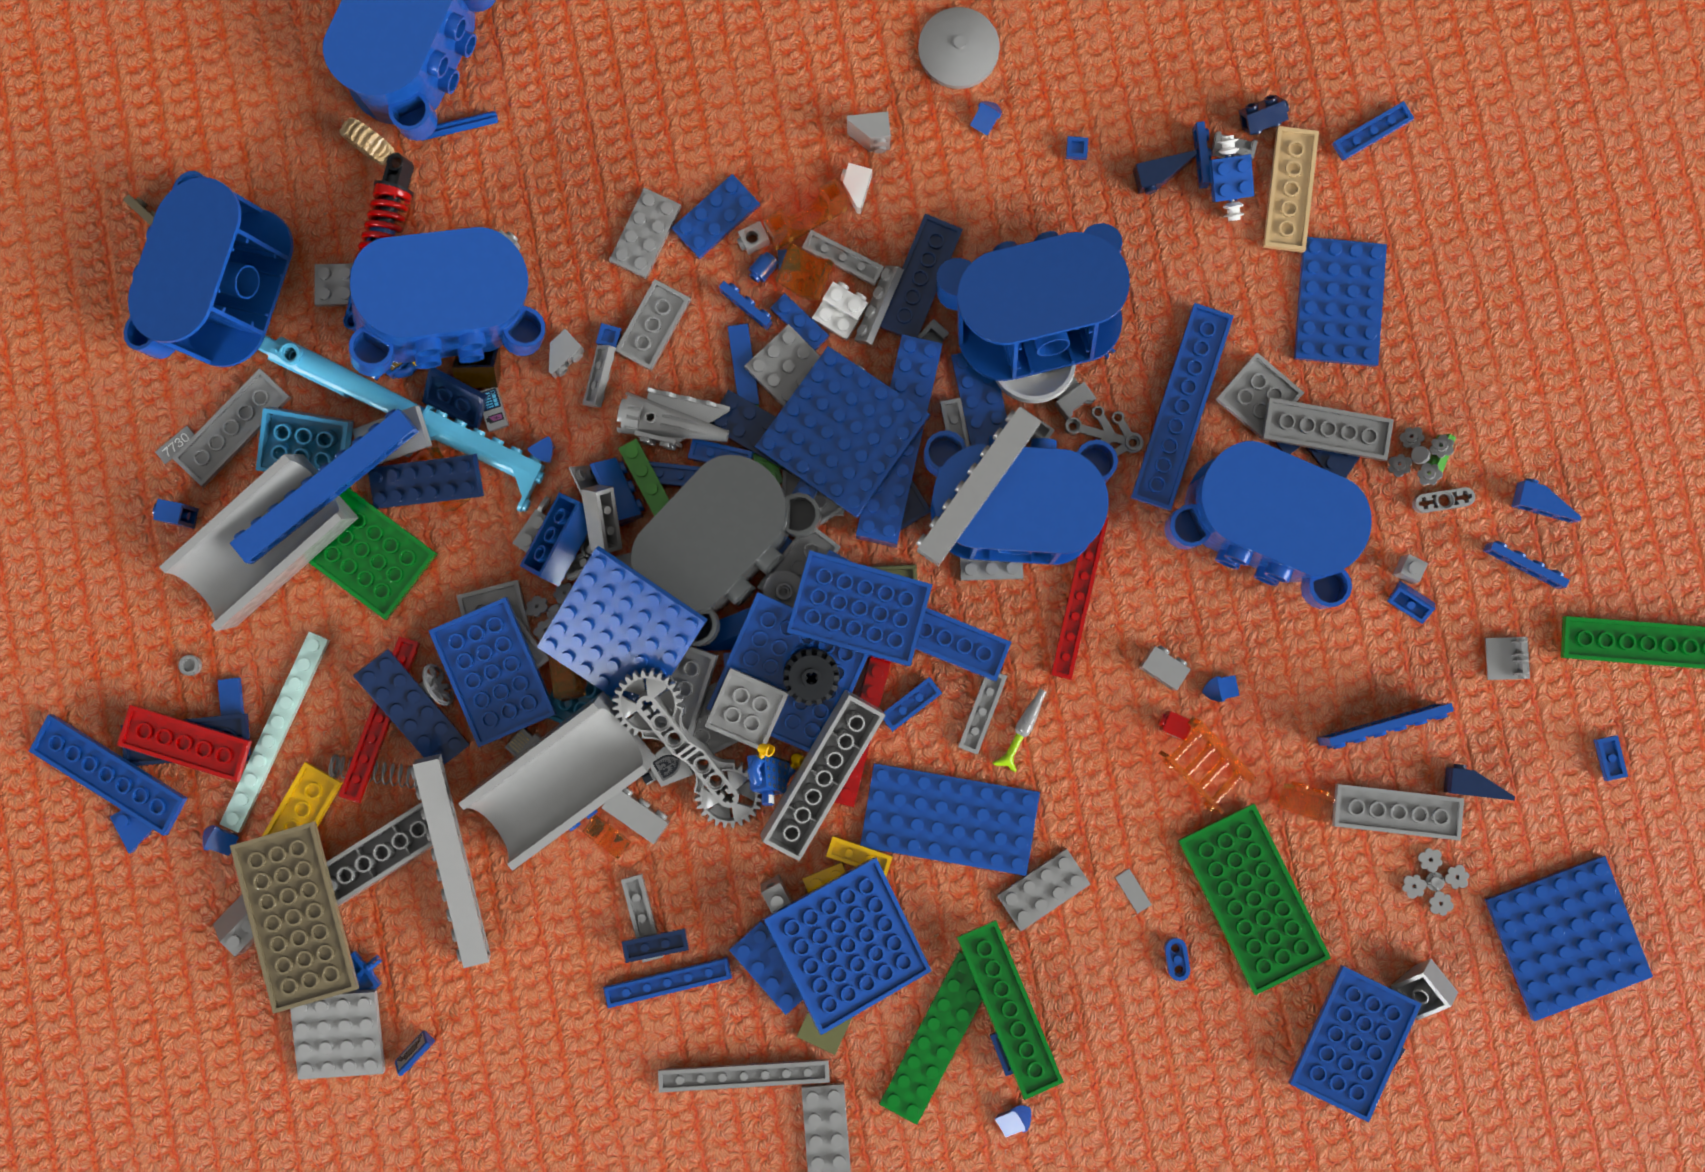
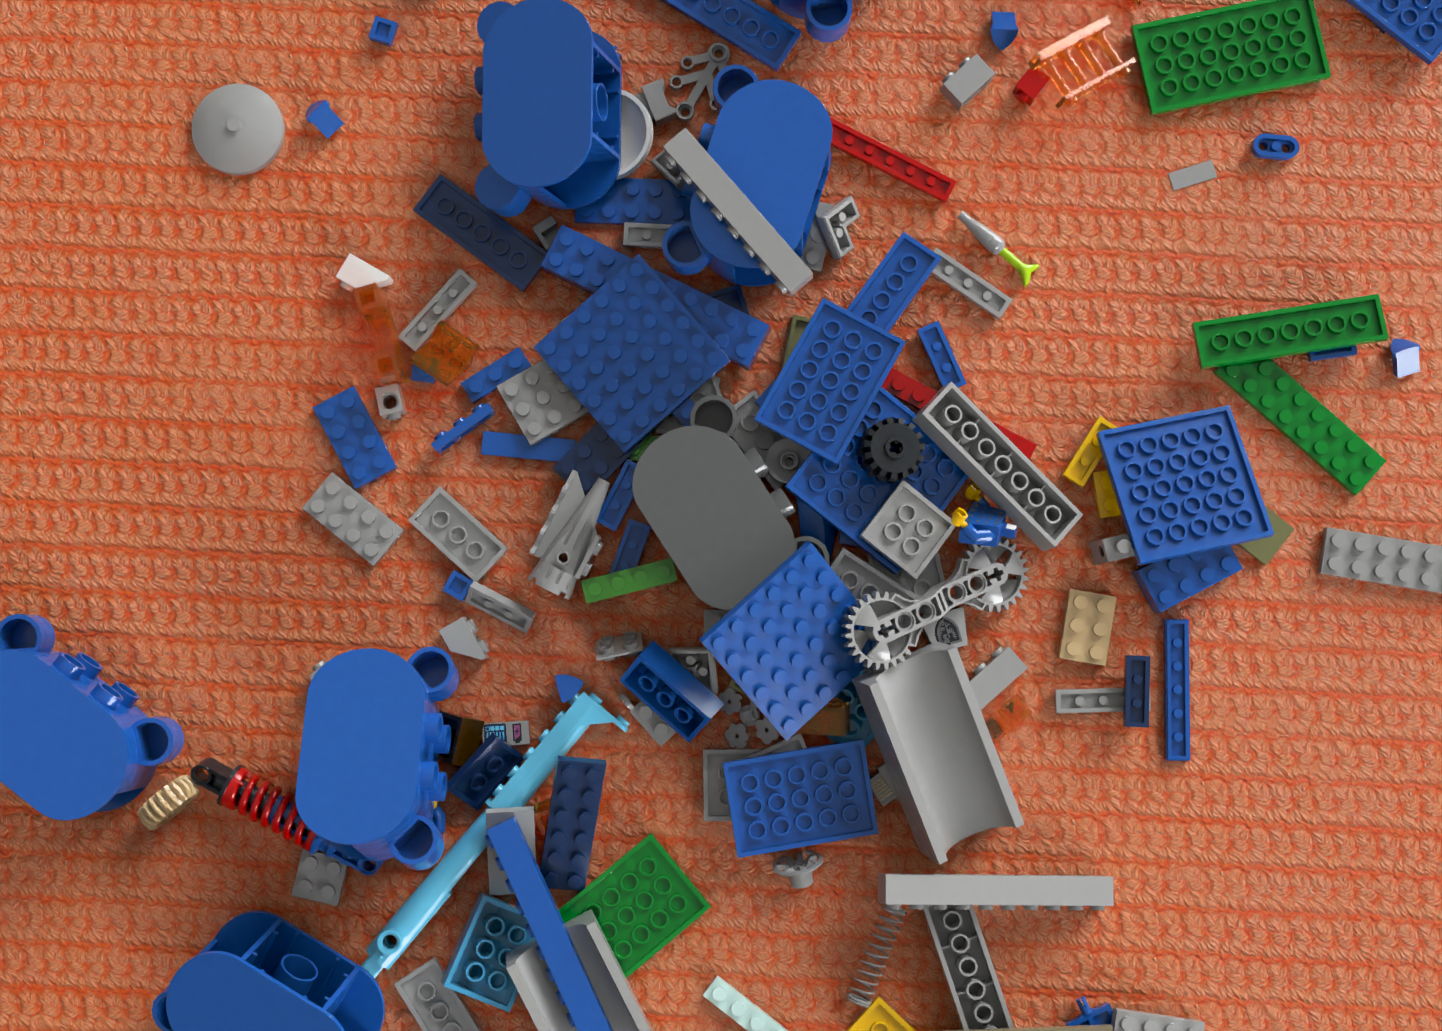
camera: 75 degrees left, 0 degrees up
(374, 734) = (821, 936): red plate -> none
(410, 707) = (816, 898): dark blue plate -> none
(413, 1052) = (1190, 983): slope -> none
(464, 124) = (176, 687): blue axle -> none
(601, 517) = (663, 636): light grey brick -> none
(612, 473) = (633, 614): blue slope -> none
(703, 889) = (1087, 627): none -> tan plate
(743, 1075) = (1294, 631): light grey plate -> none
(763, 267) = (426, 399): blue brick -> none
(840, 310) = (495, 327): white plate -> none
(870, 131) = (307, 243): light grey slope -> none
(878, 305) = (500, 284): light grey plate -> none
(950, 819) = (1073, 347): blue plate -> none
(1003, 580) = (834, 224): none -> light grey brick
(1043, 889) = (1170, 267): light grey plate -> none

